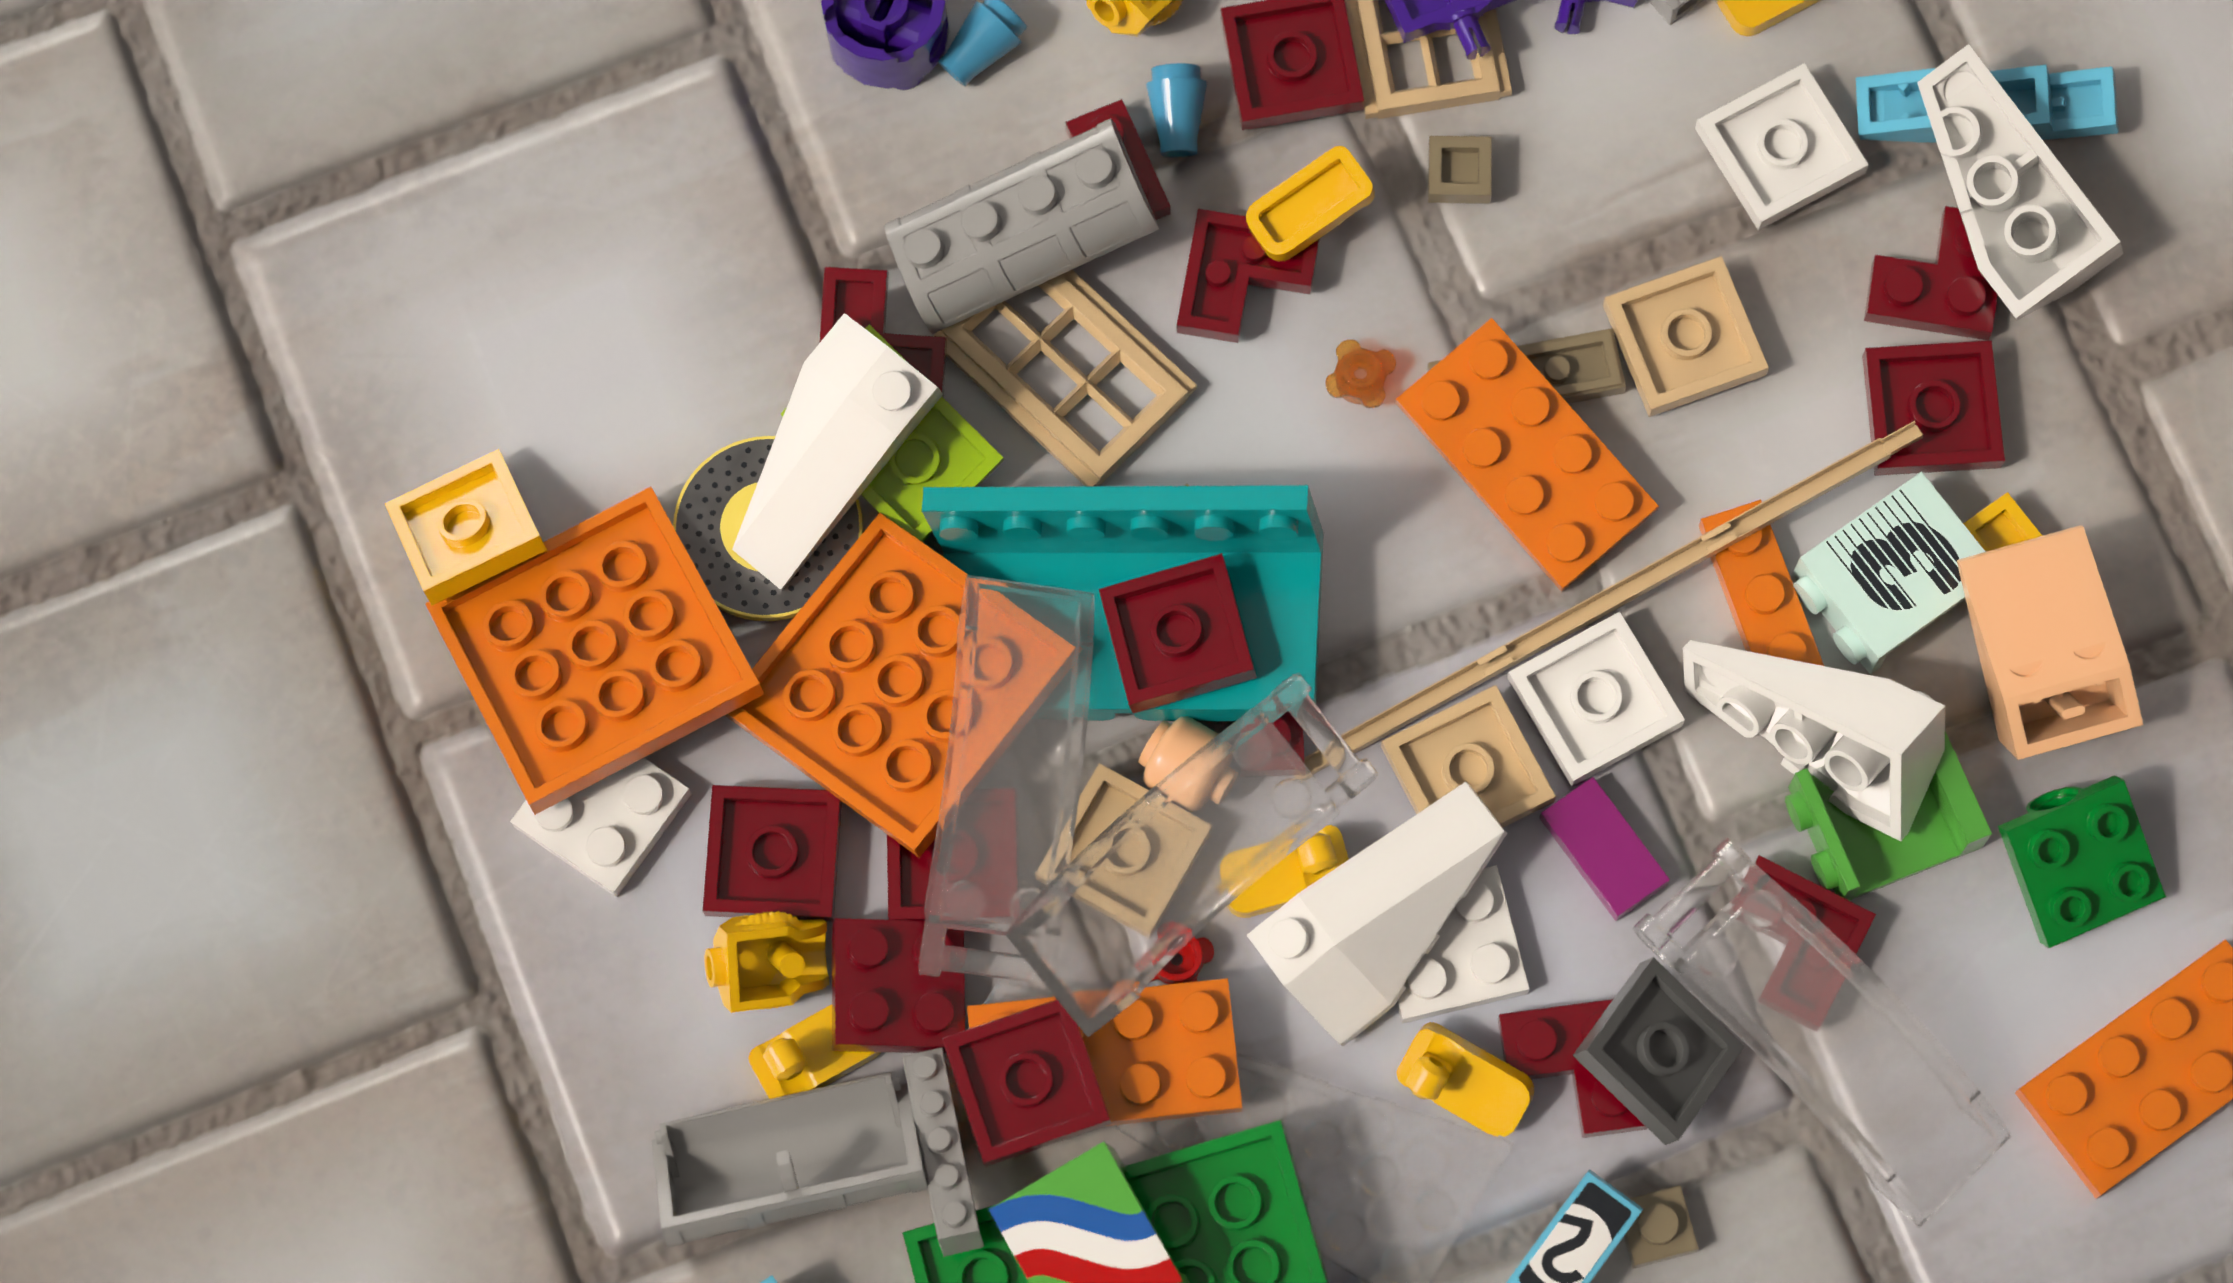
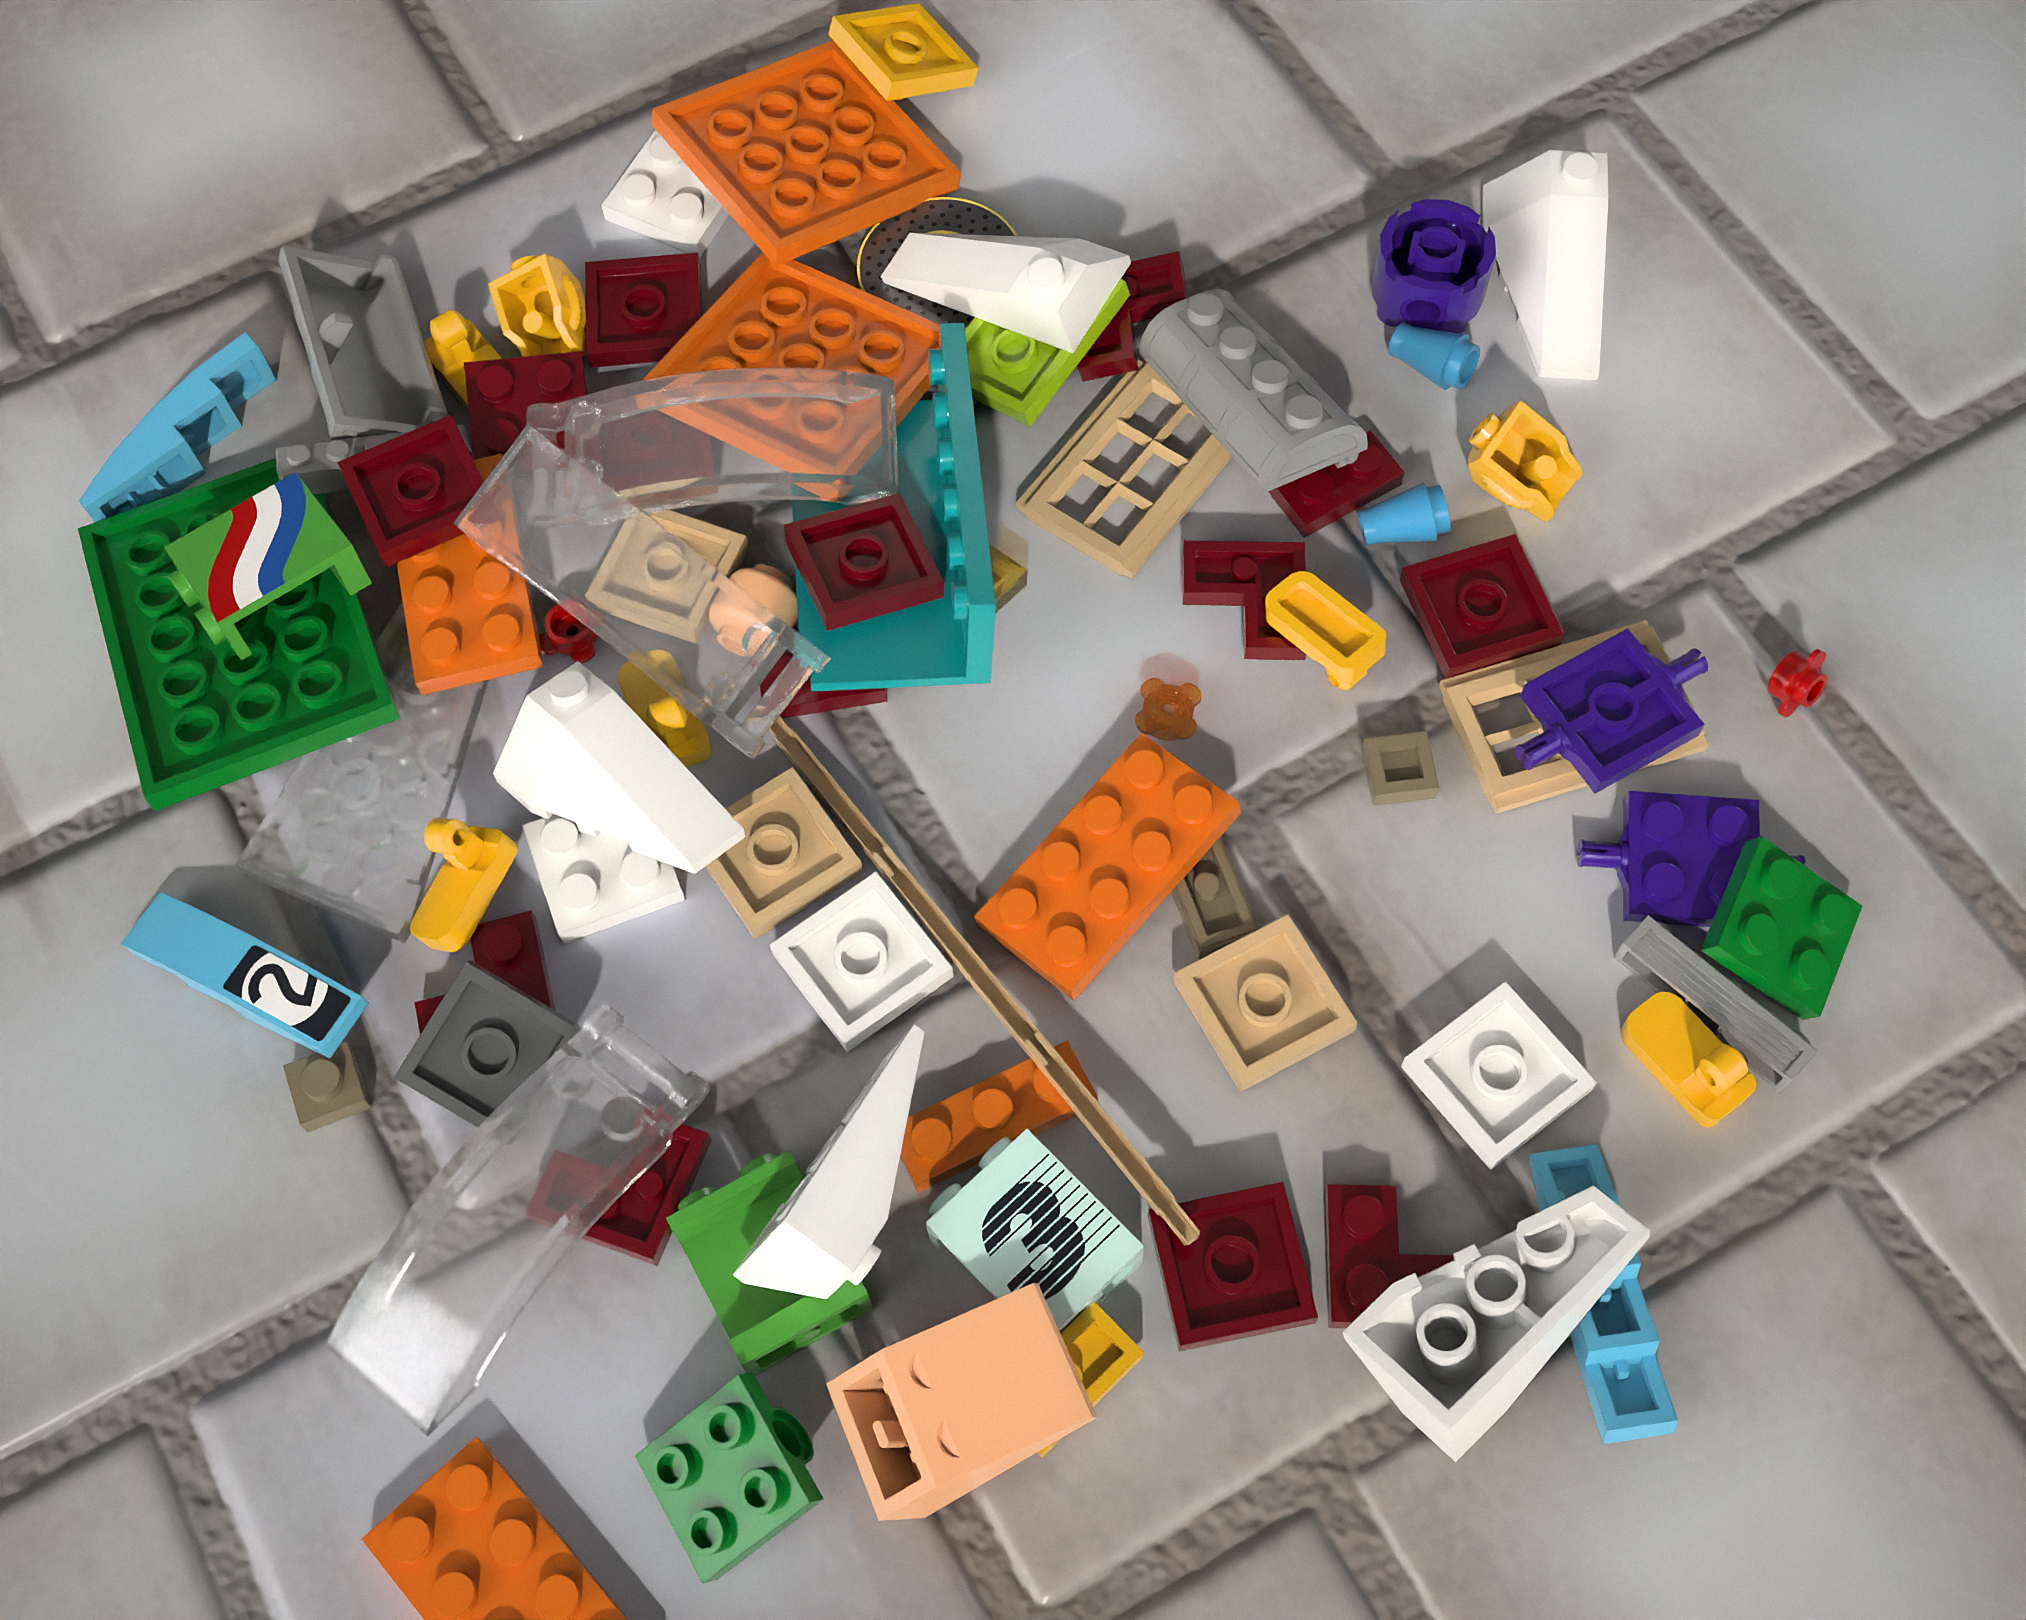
camera: 80 degrees right, 10 degrees down
(1604, 848) = (711, 992): magenta tile -> none

